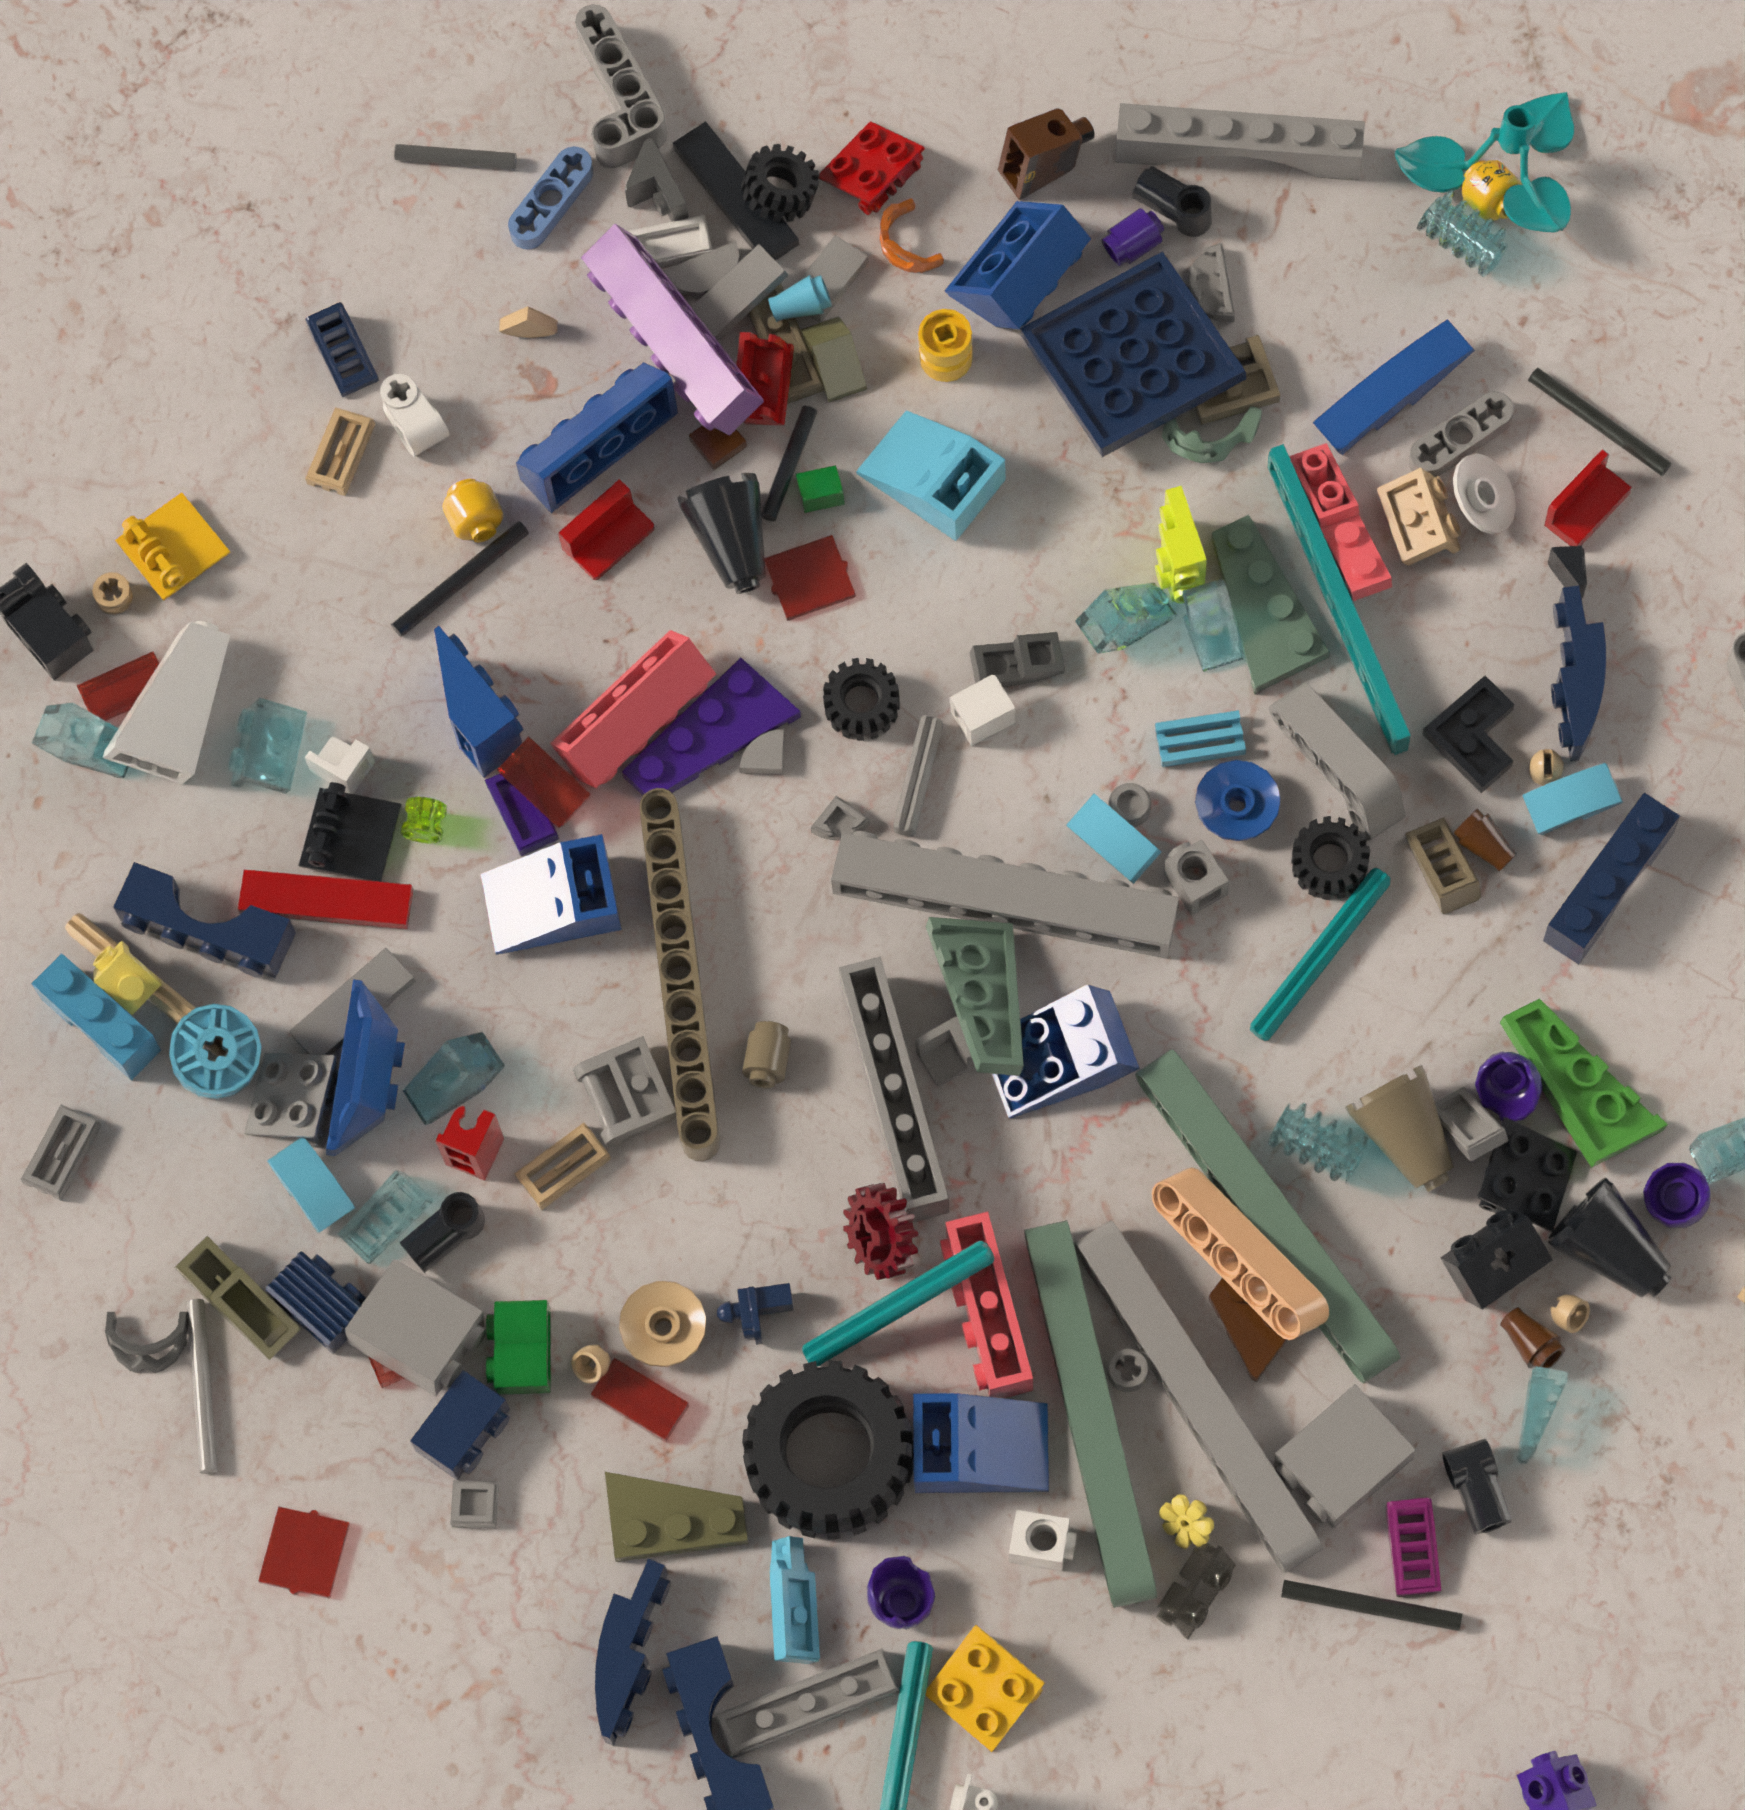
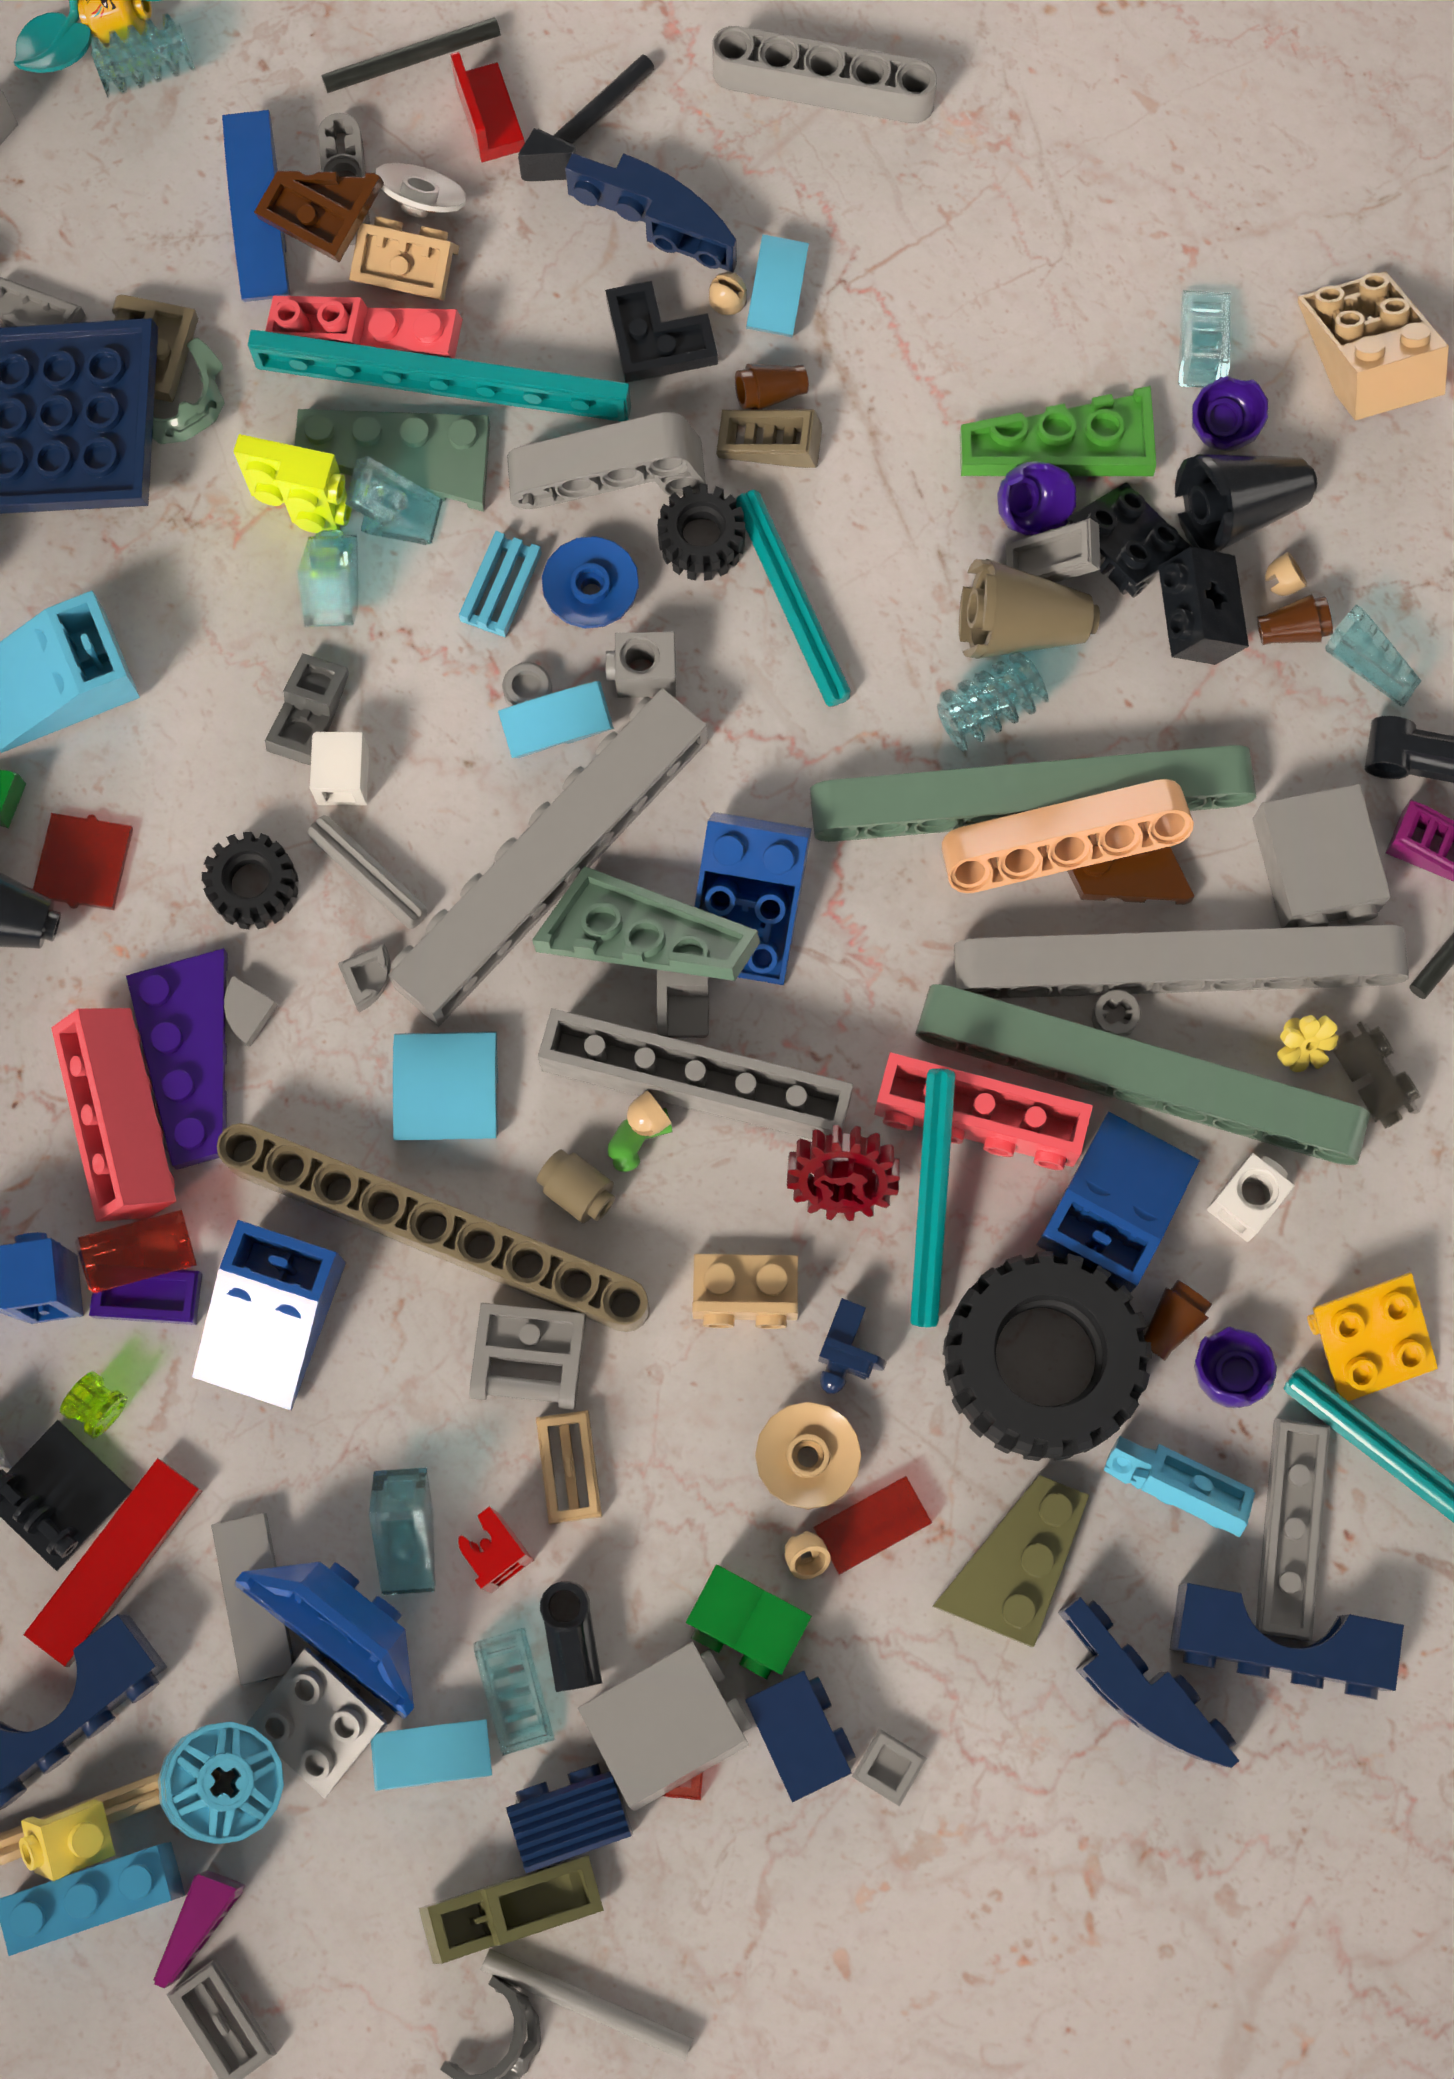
camera: 65 degrees left, 5 degrees up
(121, 1094) = (202, 1912): none -> magenta slope
(304, 1552) = (839, 1988): clear red piece -> none
(762, 1216) = (745, 1289): none -> tan bracket
(789, 922) = (445, 1086): none -> medium azure slope
(832, 1072) = (625, 1146): none -> bright green arm
(845, 1071) = (647, 1116): none -> tan hinge
(915, 1534) = (1176, 1318): none -> reddish brown cone
(1410, 433) = (319, 207): none -> reddish brown wing
(1610, 877) = (899, 325): dark blue arch -> none
(1647, 583) = (605, 100): none -> black bar

